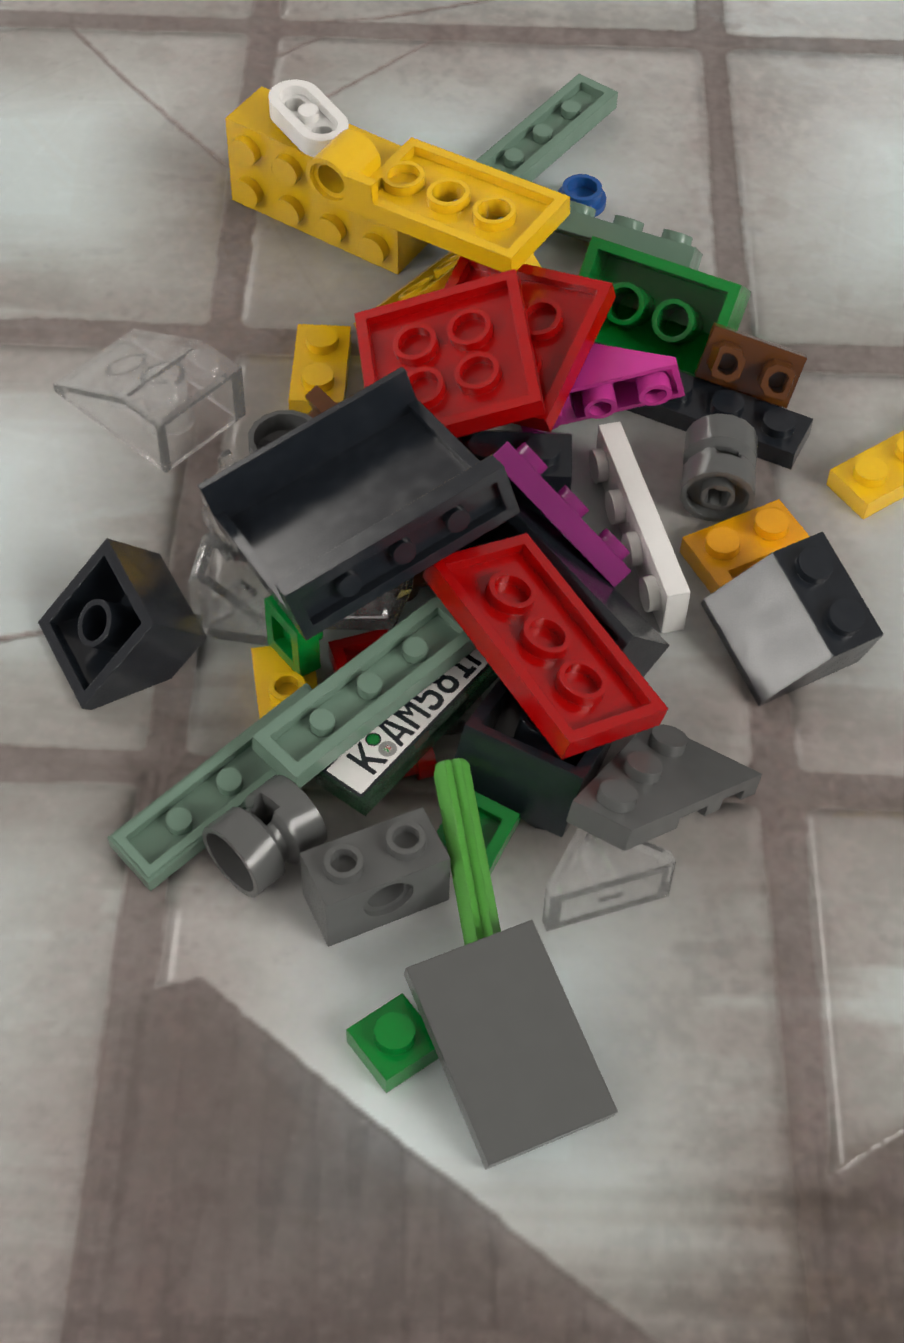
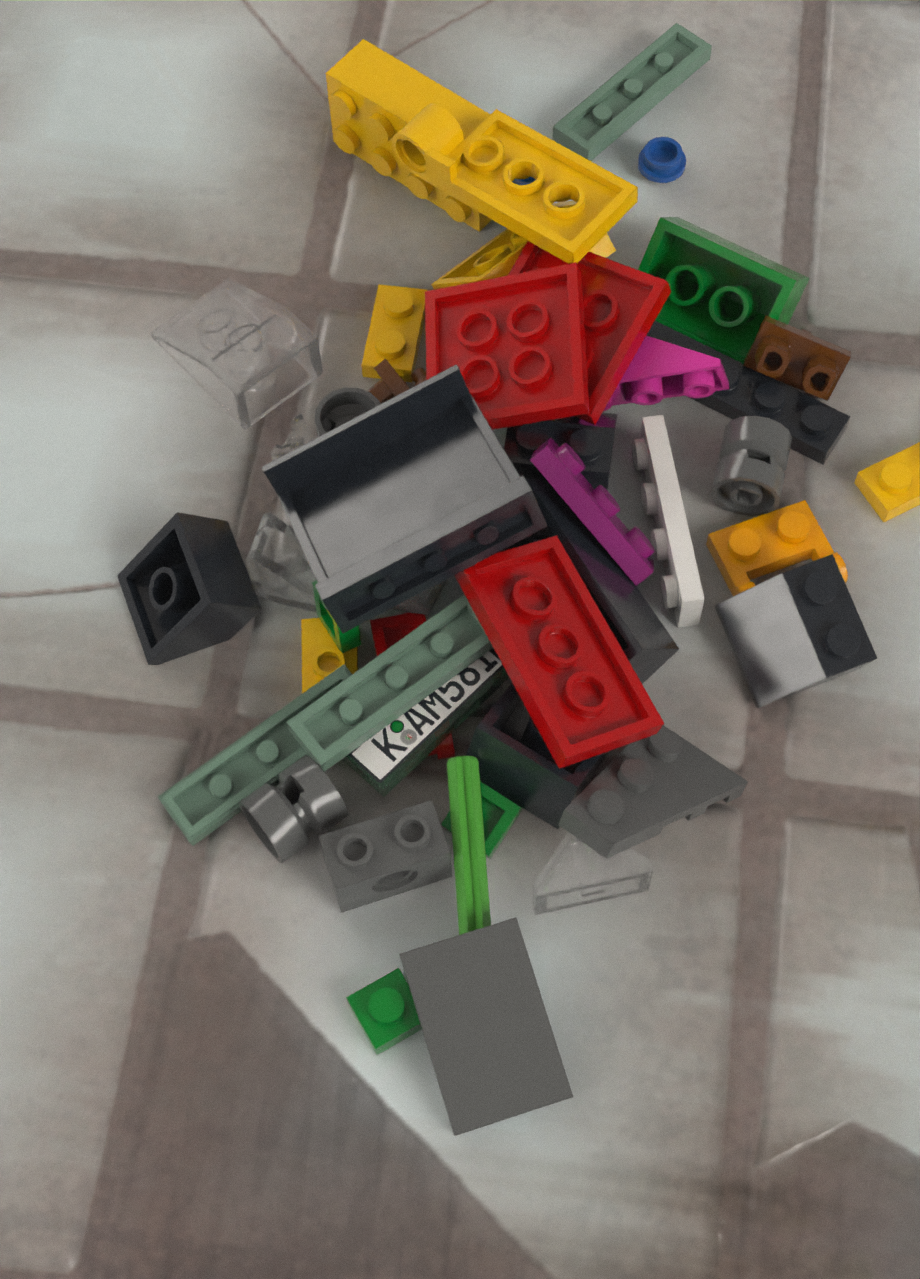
camera: 10 degrees right, 10 degrees up
(305, 115) = (399, 79): white plate -> none
(628, 232) = (694, 206): sand green plate -> none

